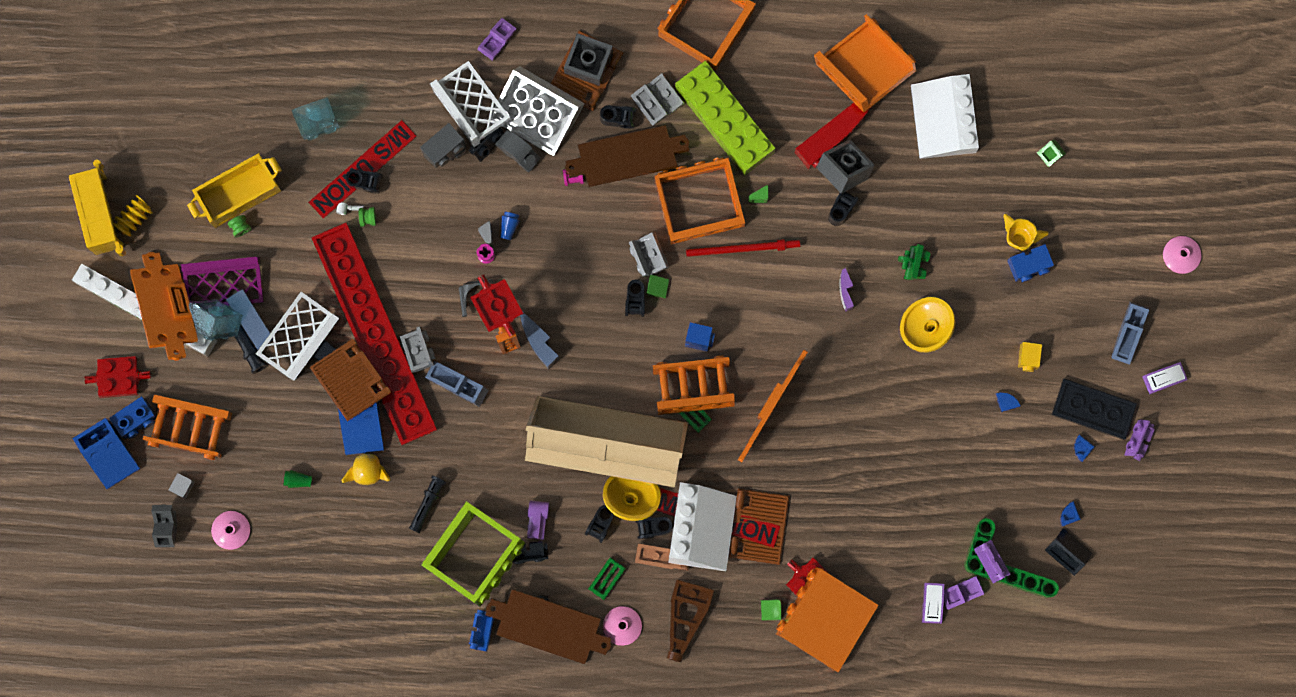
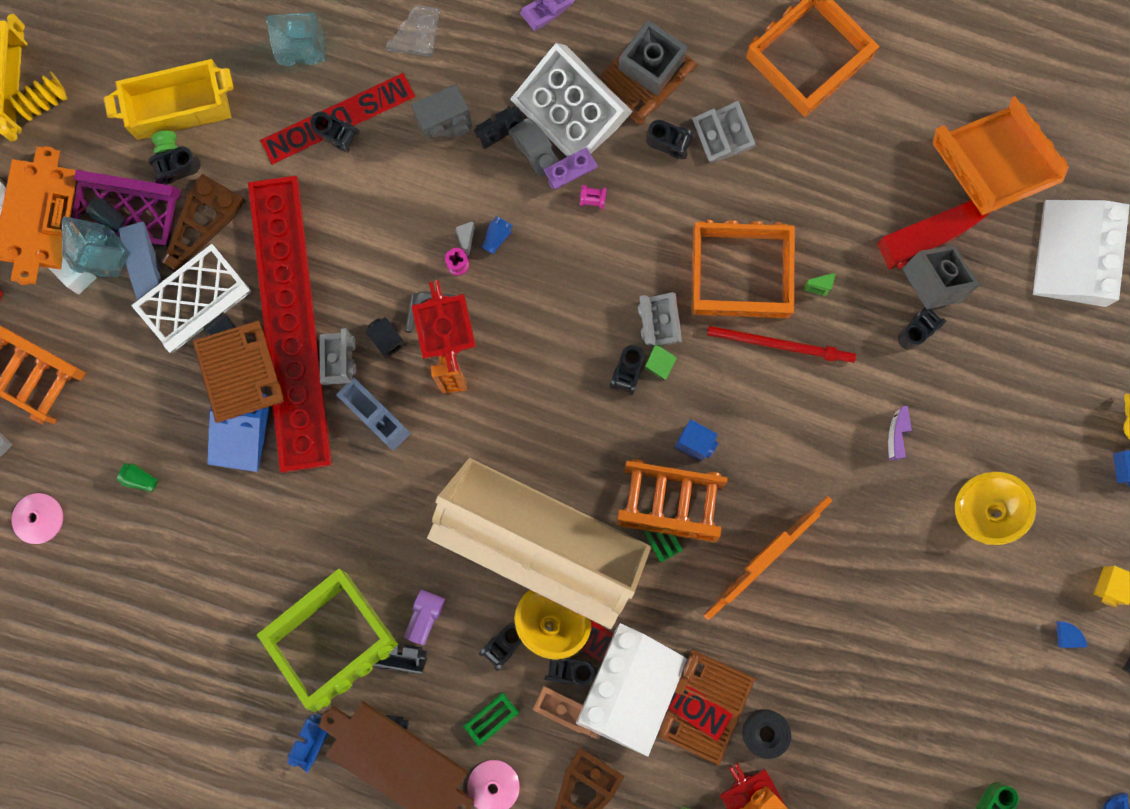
camera: 15 degrees right, 0 degrees up
(213, 291) = (105, 213): none -> black cone
(249, 240) = (169, 165): none -> black piece
(249, 352) = (132, 319): black pin -> none
(289, 255) = (216, 197): none -> reddish brown plate
(343, 207) = (299, 157): white hand -> none
(366, 470) = (226, 491): yellow piece -> none
(367, 216) = (324, 176): bright green wheel -> none
(404, 87) = (417, 33): none -> clear wing
(431, 495) = (298, 547): black pin -> none
(448, 324) = (385, 337): none -> black brick
(460, 115) = (475, 84): white fence -> none
(538, 340) = (491, 389): sand blue slope -> none
(550, 160) = (570, 168): none -> medium lavender hinge
(627, 156) = (667, 189): reddish brown piece -> none
(724, 118) = (802, 176): lime brick -> none
(807, 521) = (780, 740): none -> black tyre
(911, 262) = (994, 421): green hips -> none

